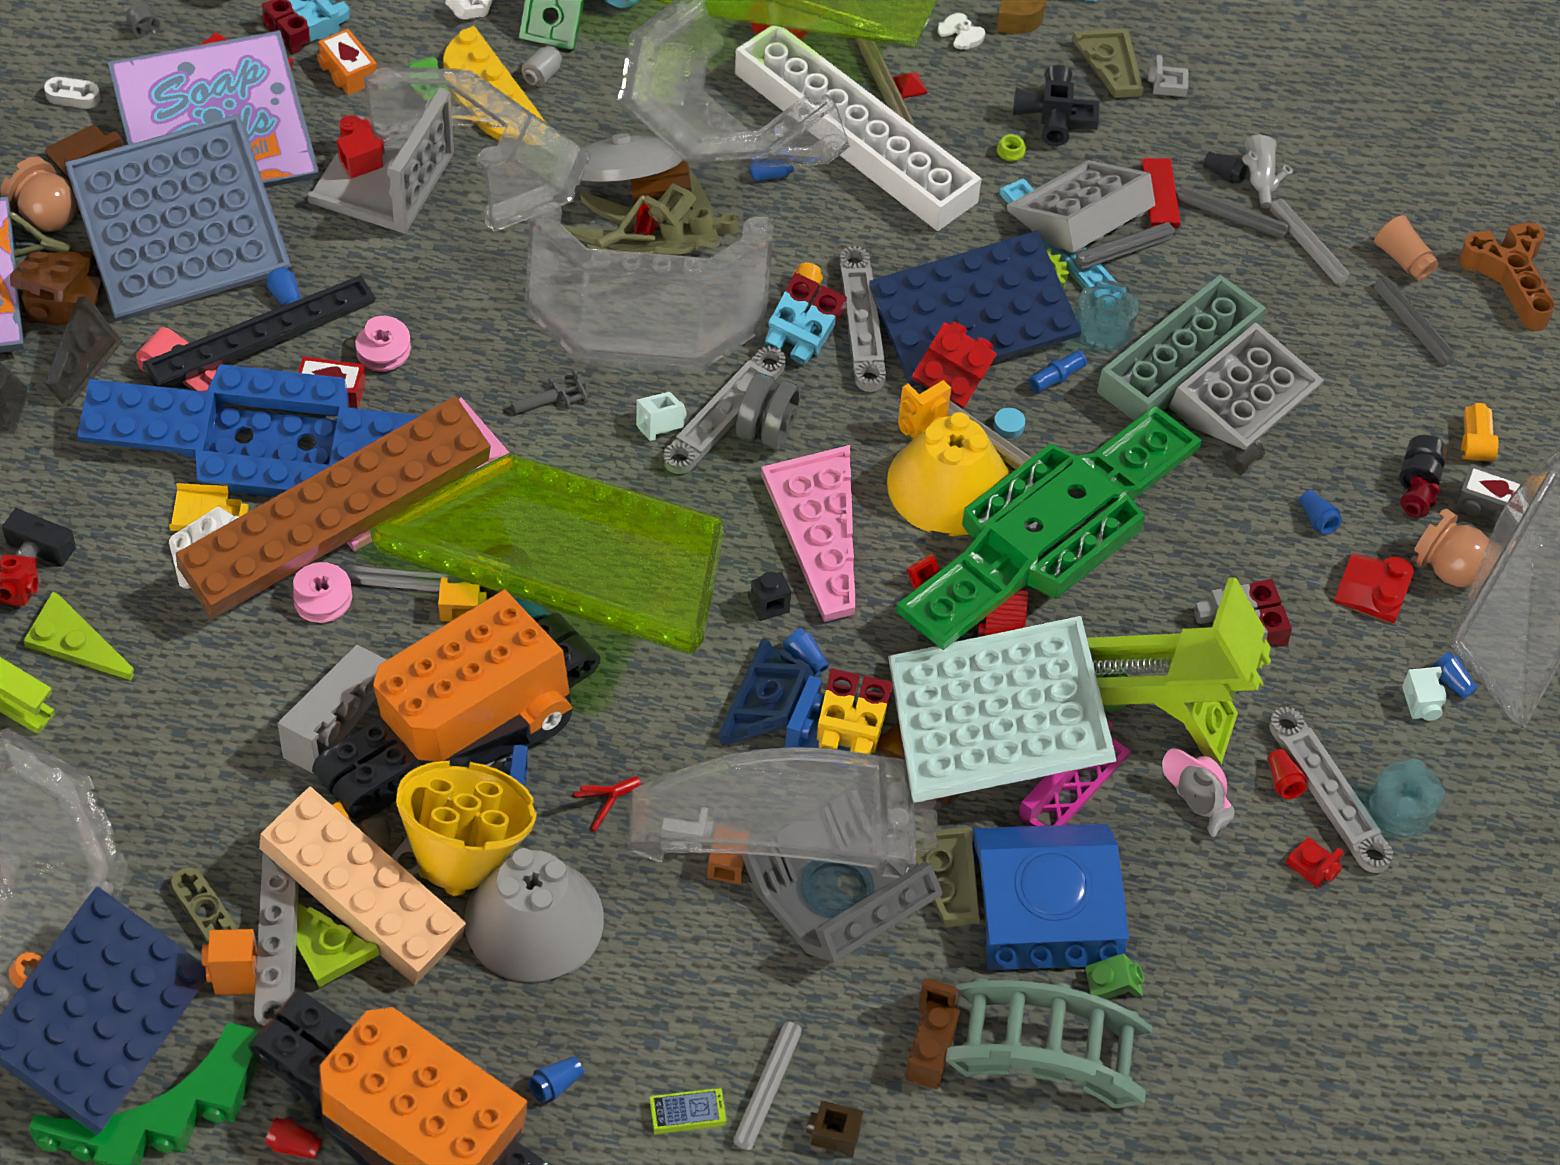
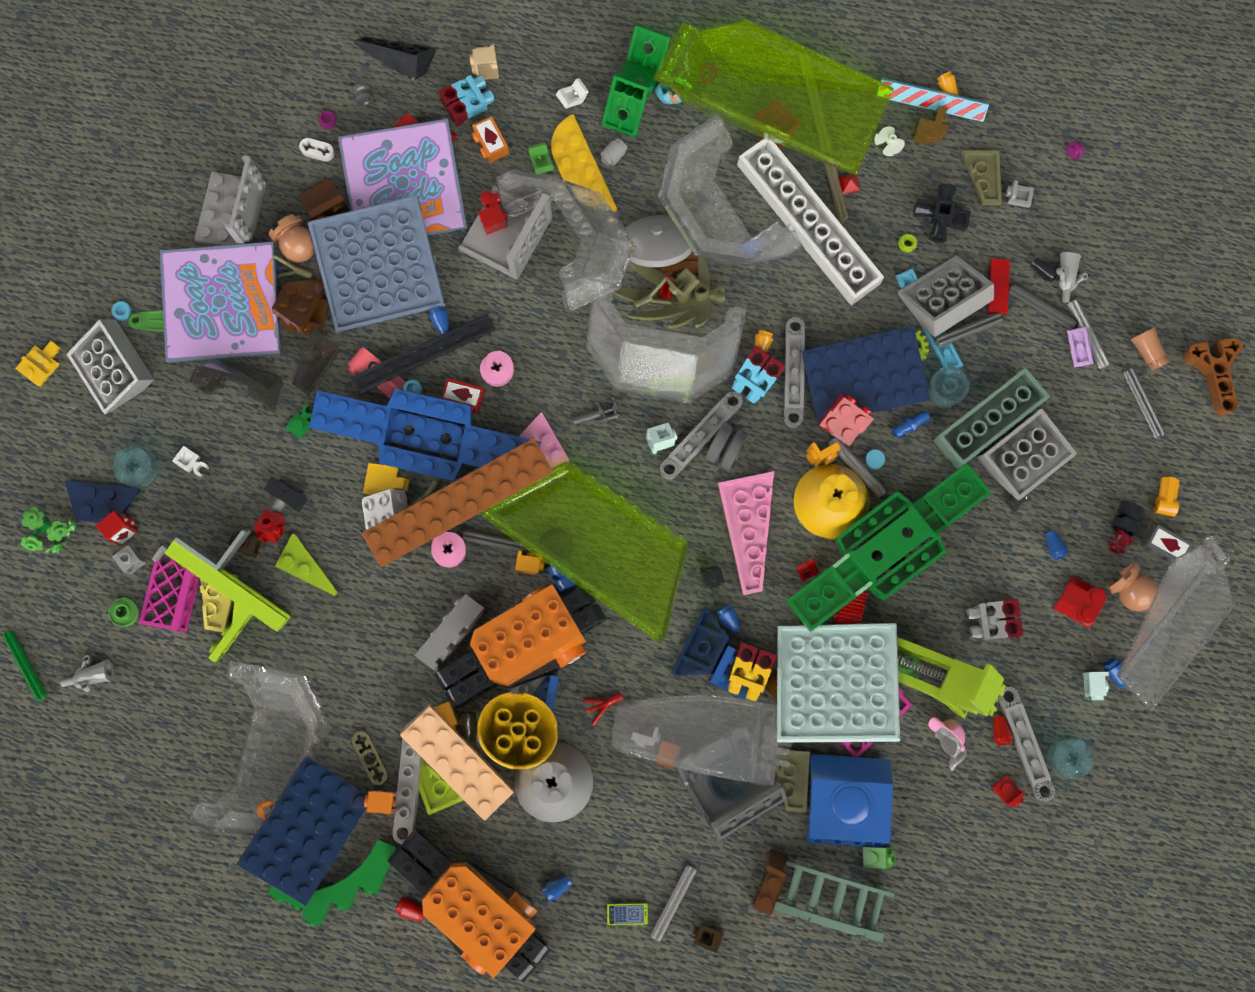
camera: 10 degrees right, 25 degrees up
(60, 444) = (300, 423): none -> green plate
(87, 55) = (327, 120): none -> magenta plate
(1240, 22) = (1075, 149): none -> magenta plate
(1300, 255) = (1080, 347): none -> lavender plate

